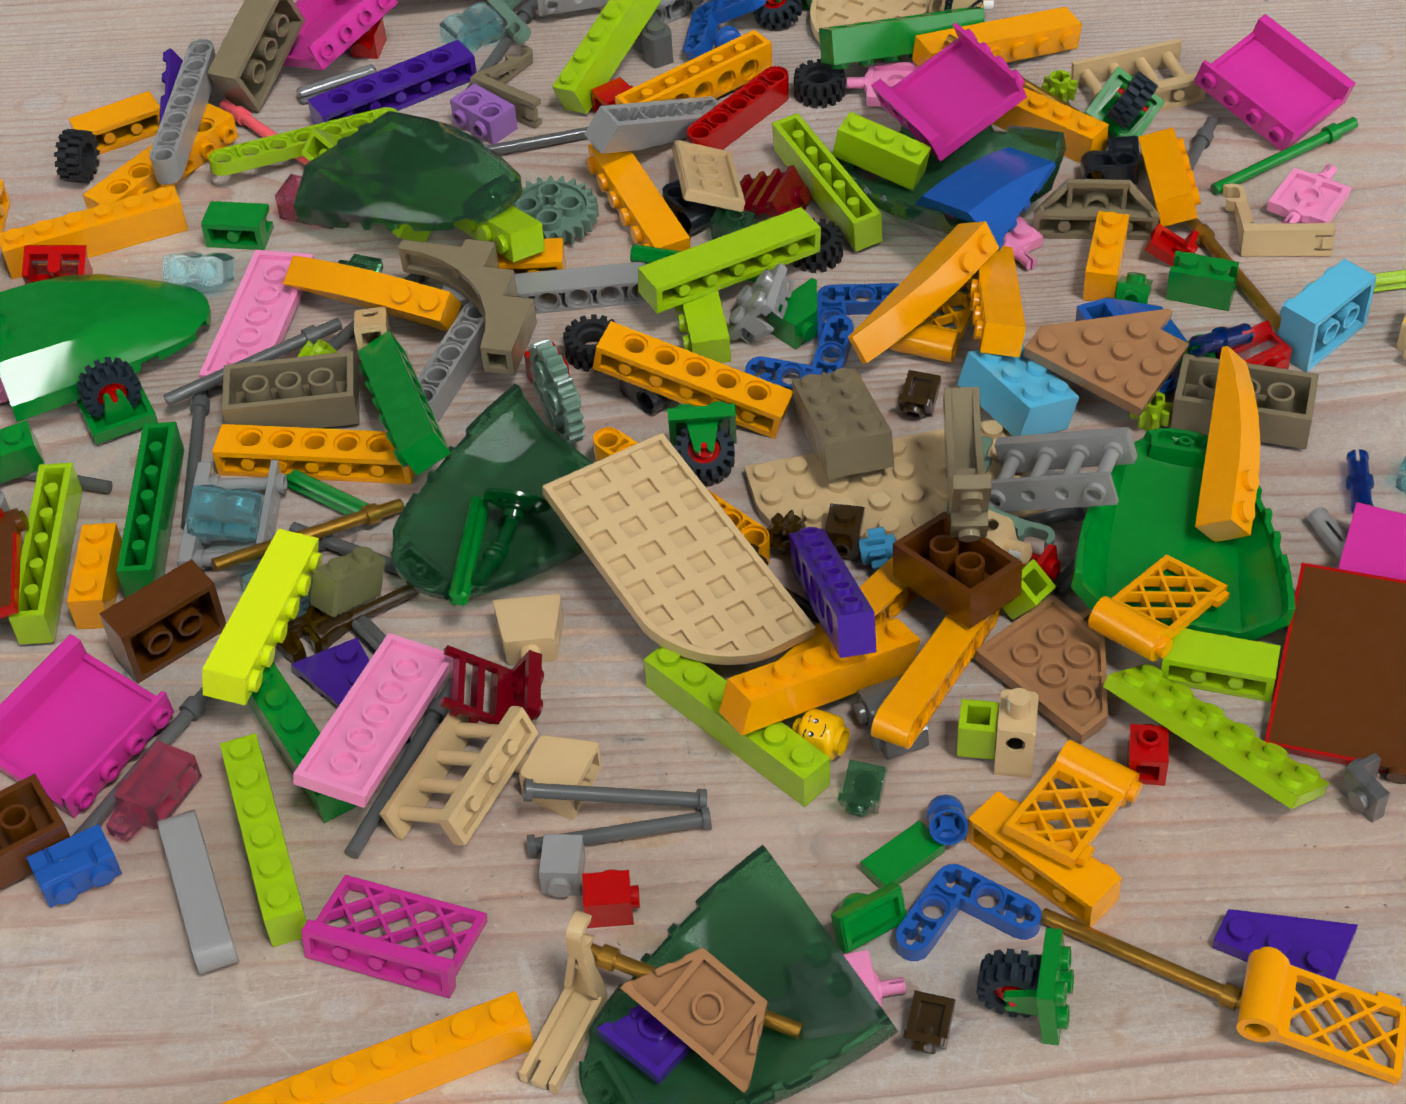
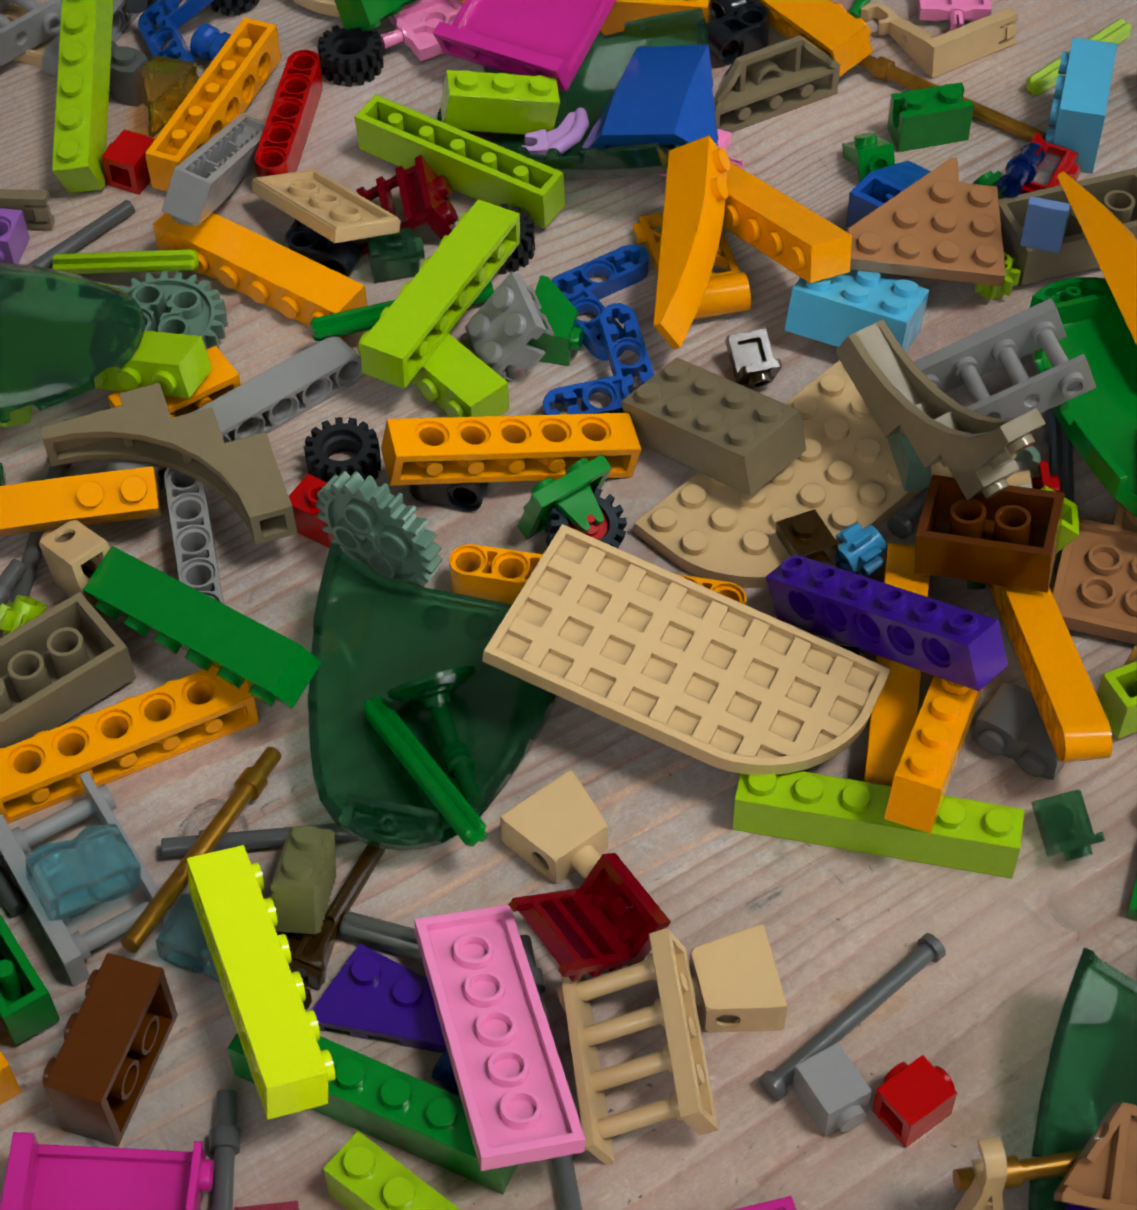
camera: 35 degrees left, 5 degrees up
(324, 493) = (171, 784): green axle -> none
(556, 164) = (127, 261): none -> lime axle
(613, 795) = (751, 1021): dark grey bar -> none
(664, 57) = (164, 88): none -> clear yellow slope
(779, 537) = (749, 565): dark brown gear -> none
(824, 731) = (981, 781): yellow head -> none
(907, 193) = (563, 138): none -> lavender piece
(1105, 256) = (816, 130): light orange brick -> none
(1165, 243) = (868, 95): red bracket -> none
(1194, 380) = (1045, 224): none -> medium blue slope

